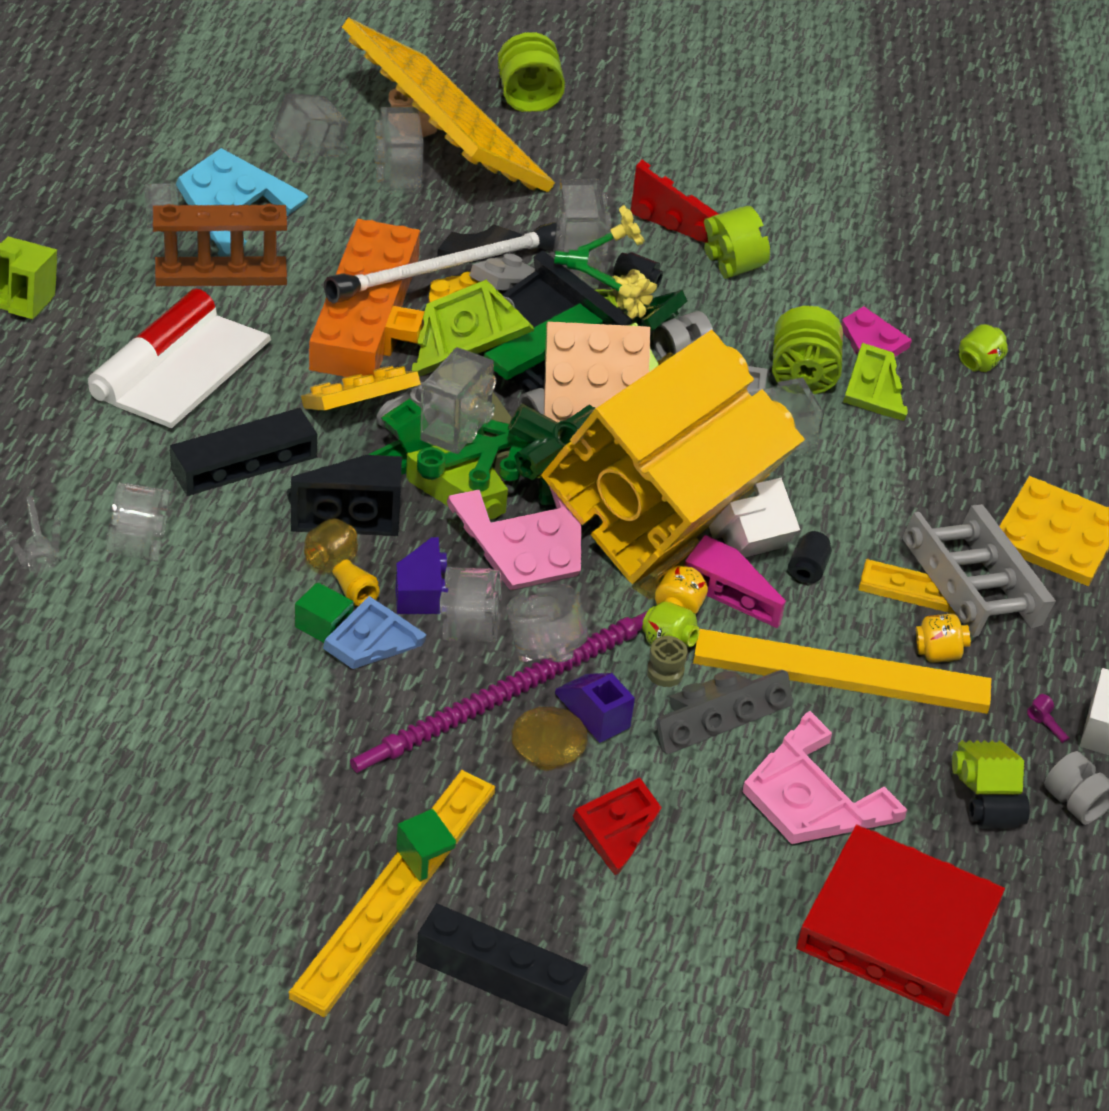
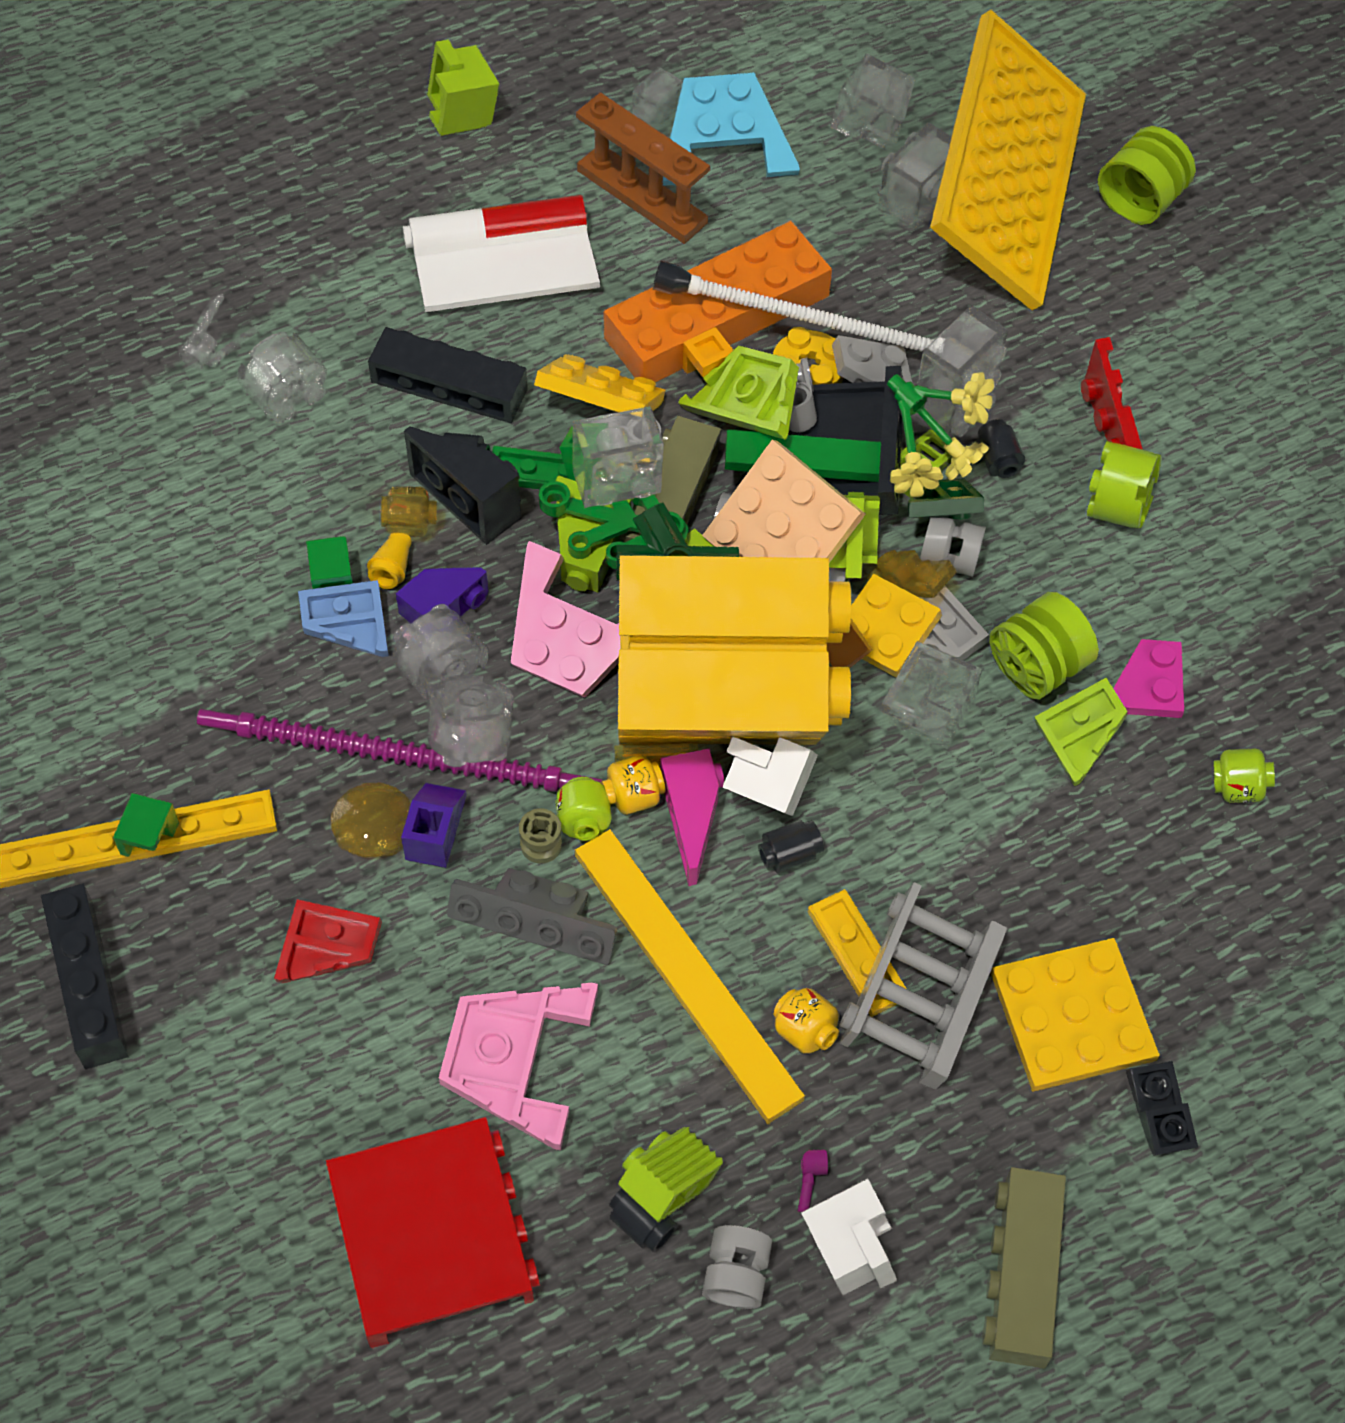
camera: 50 degrees right, 15 degrees up
(459, 242) = (881, 311): black tile -> none

